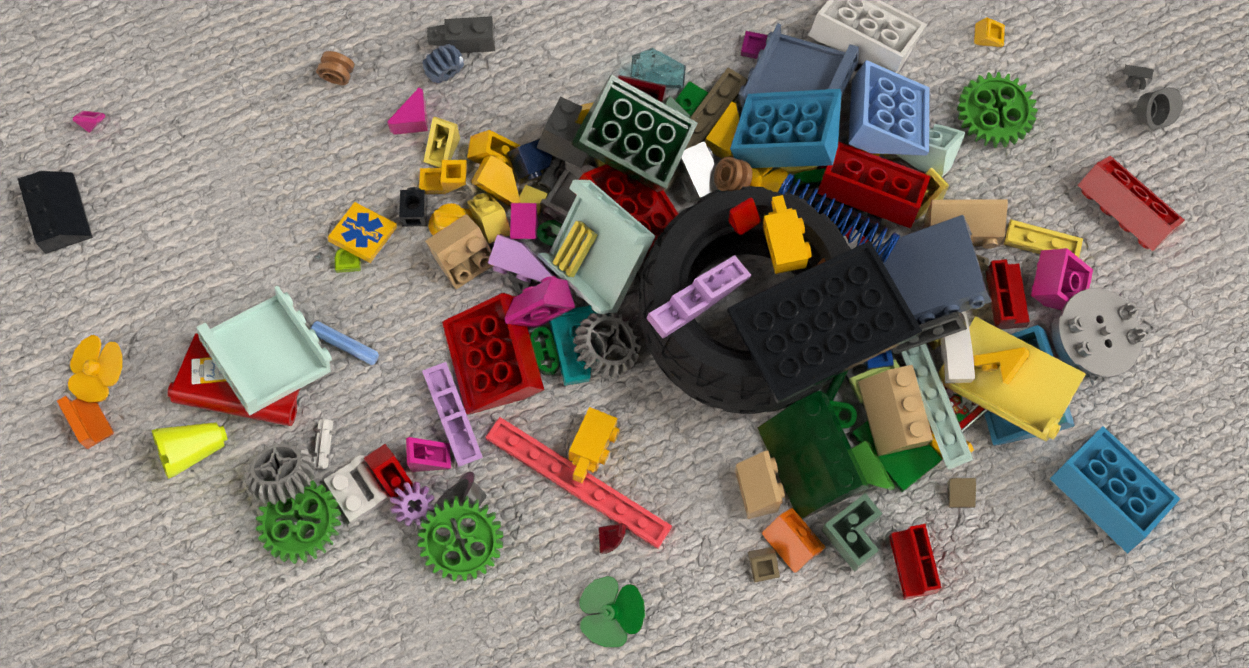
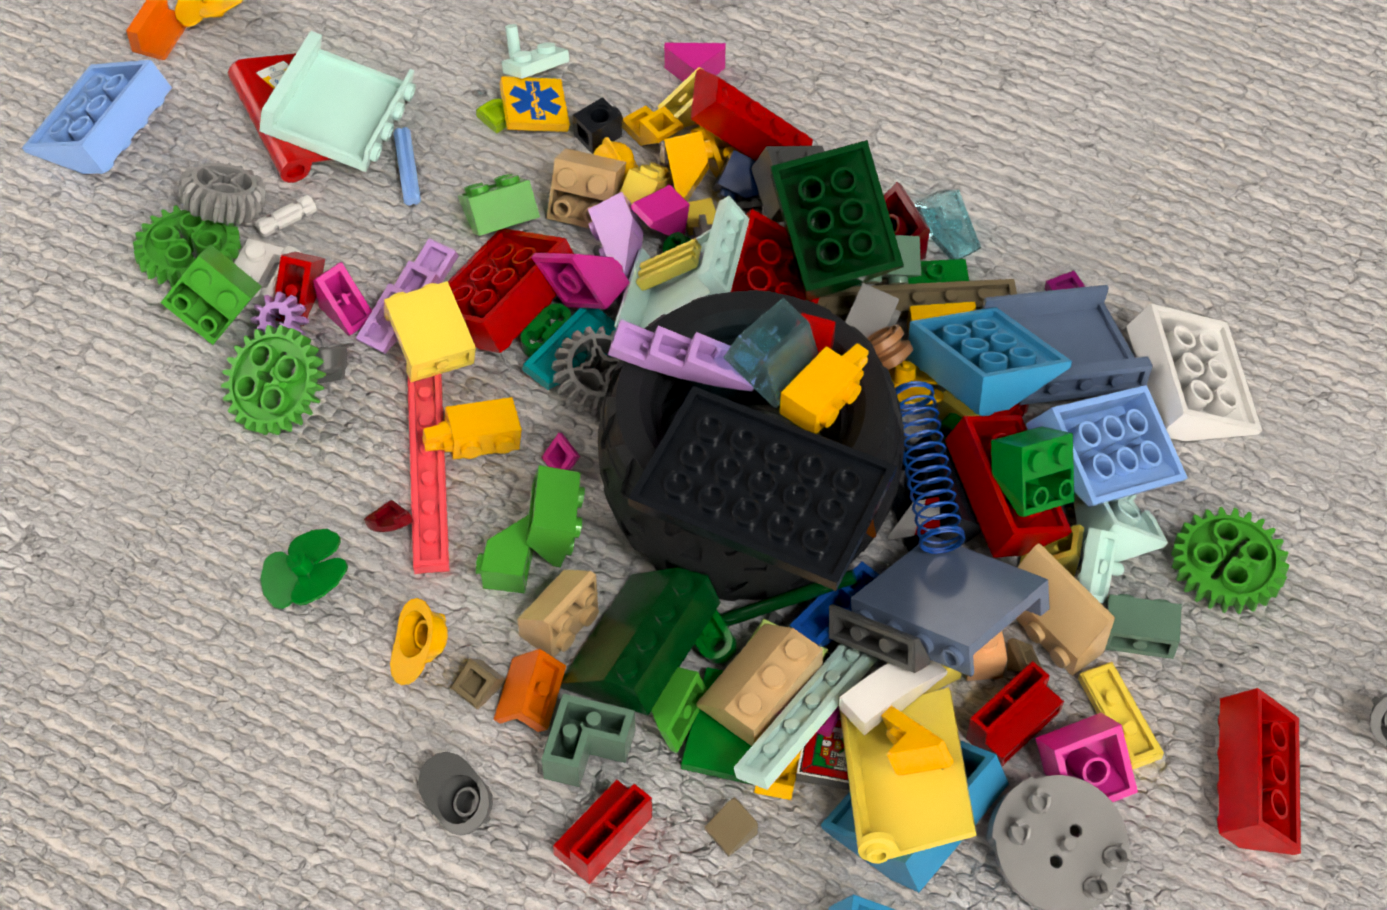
camera: 50 degrees right, 15 degrees down
(133, 508) = (99, 116): none -> light blue slope
(186, 445) = (189, 108): neon yellow cone -> none
(328, 209) = (530, 62): none -> light aqua plate
(360, 531) = (211, 294): none -> bright green slope
(427, 310) = (499, 204): none -> bright green slope
(443, 63) = (771, 47): sand blue gear -> none
(466, 34) = (821, 47): dark grey hinge -> none
(500, 419) = (430, 330): none -> light yellow panel
(504, 123) = (739, 118): none -> red slope
(647, 408) = (560, 454): none -> dark pink slope
(697, 440) = (553, 513): none -> bright green slope
(697, 488) = (506, 559): none -> bright green slope
(715, 582) = (418, 640): none -> yellow piece
(743, 246) = (773, 350): none -> clear light blue slope
(837, 628) = (455, 793): none -> dark grey piece
(887, 163) = (1035, 469): none -> green slope
(957, 173) = (1099, 563): none -> light aqua plate
(989, 33) = (1318, 498): yellow slope -> none
(1007, 182) = (1144, 626): none -> sand green brick

